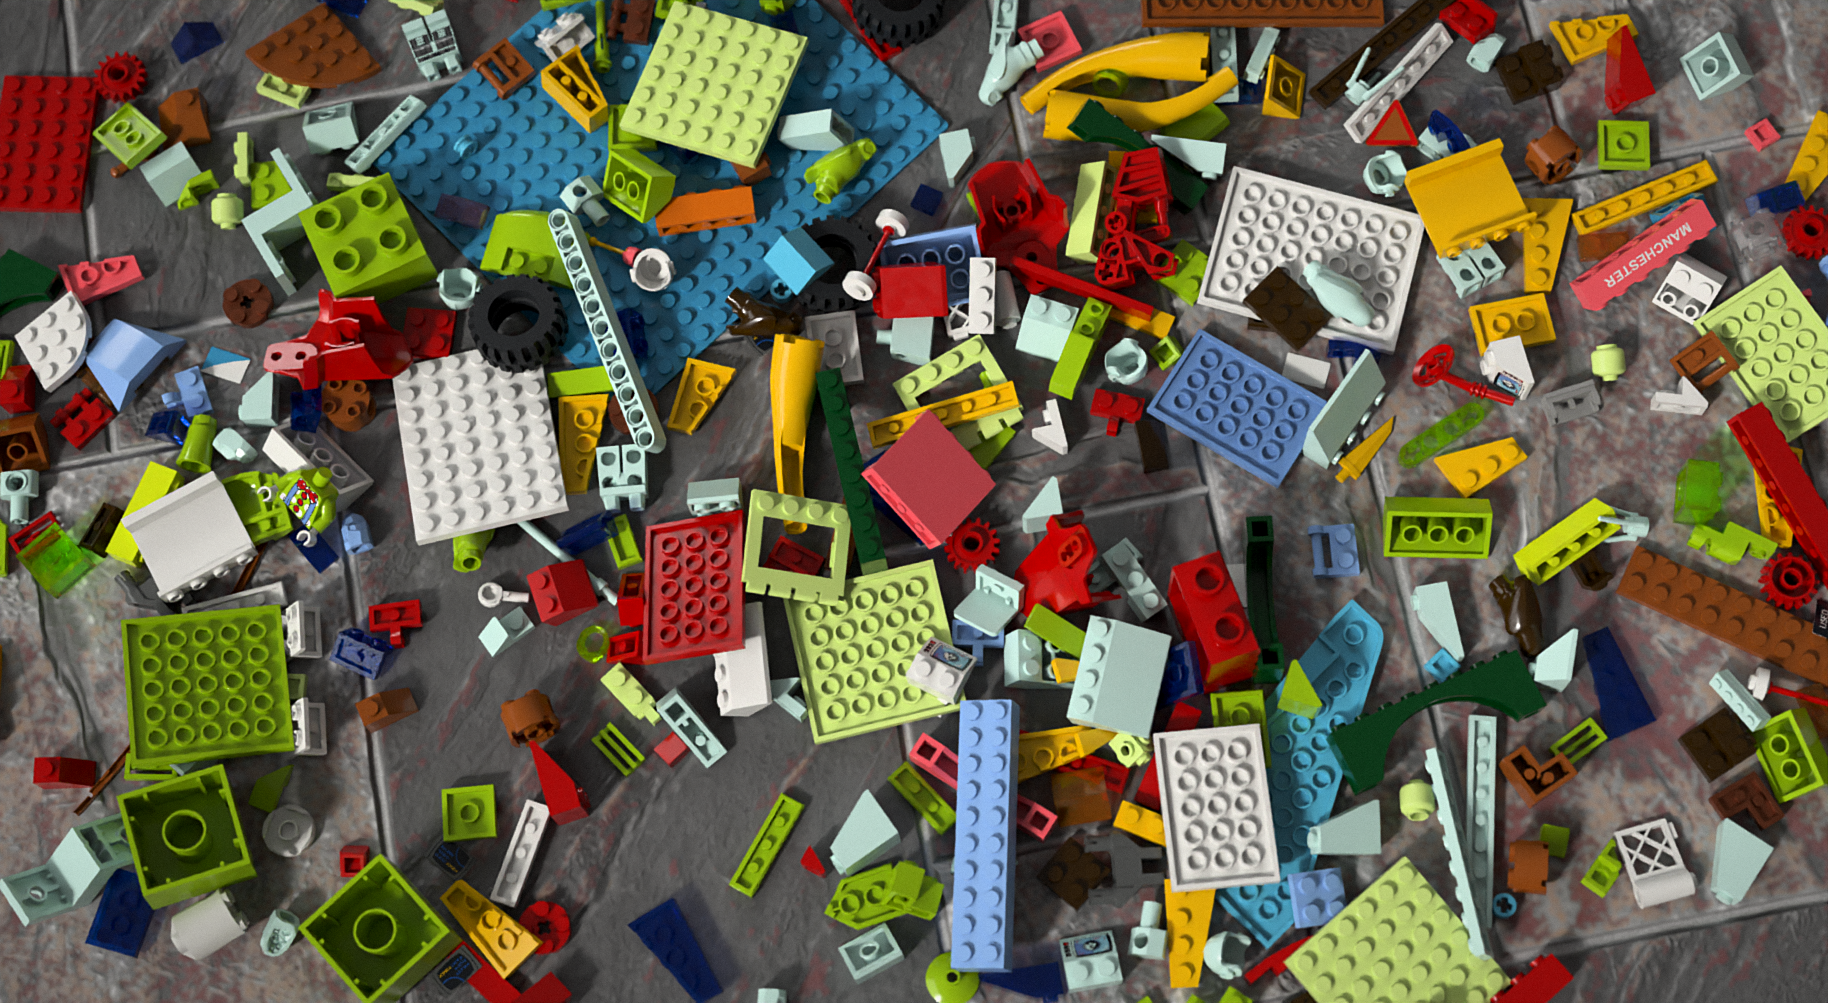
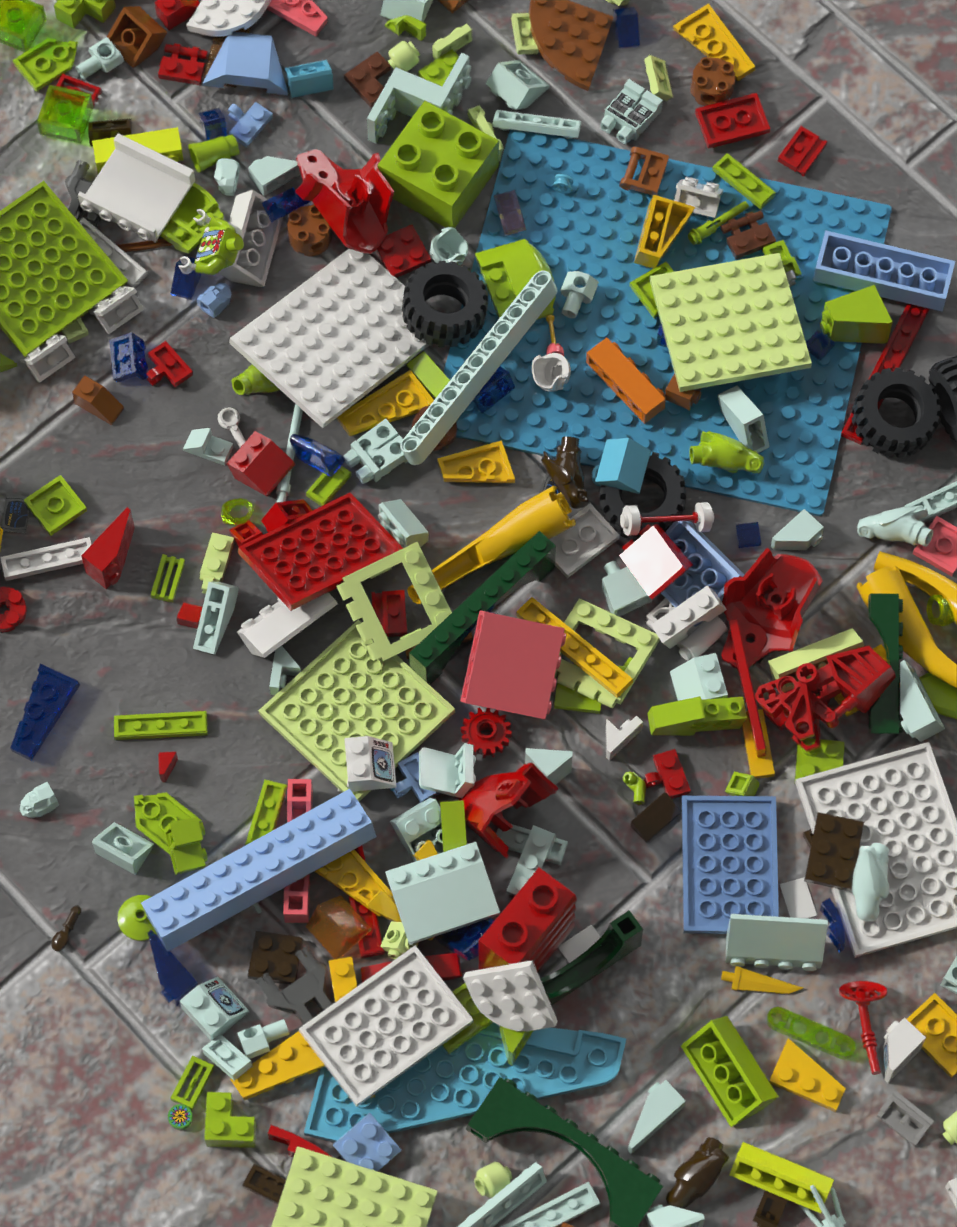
camera: 50 degrees right, 5 degrees down
(185, 309) = (309, 78): none -> medium azure slope
(224, 262) = (365, 75): none -> copper plate
(225, 365) = (287, 132): sticker -> none
(236, 296) = (340, 105): copper plate -> none
(529, 718) = (149, 500): dark orange brick -> none
(637, 184) = (611, 317): lime slope -> none
(863, 837) = (206, 785): light aqua slope -> none
(1108, 443) = (637, 785): none -> lime arm
(1126, 362) = (709, 757): light aqua cap -> none
(1149, 977) = (227, 1057): none -> light aqua plate
(1226, 953) = (280, 1103): light aqua cap -> none
(1277, 670) = (511, 996): none -> white plate
(1342, 551) = (664, 1010): light blue plate -> none
(1348, 832) = (431, 1140): light aqua slope -> none
(1442, 665) = (618, 1139): medium azure tile -> none

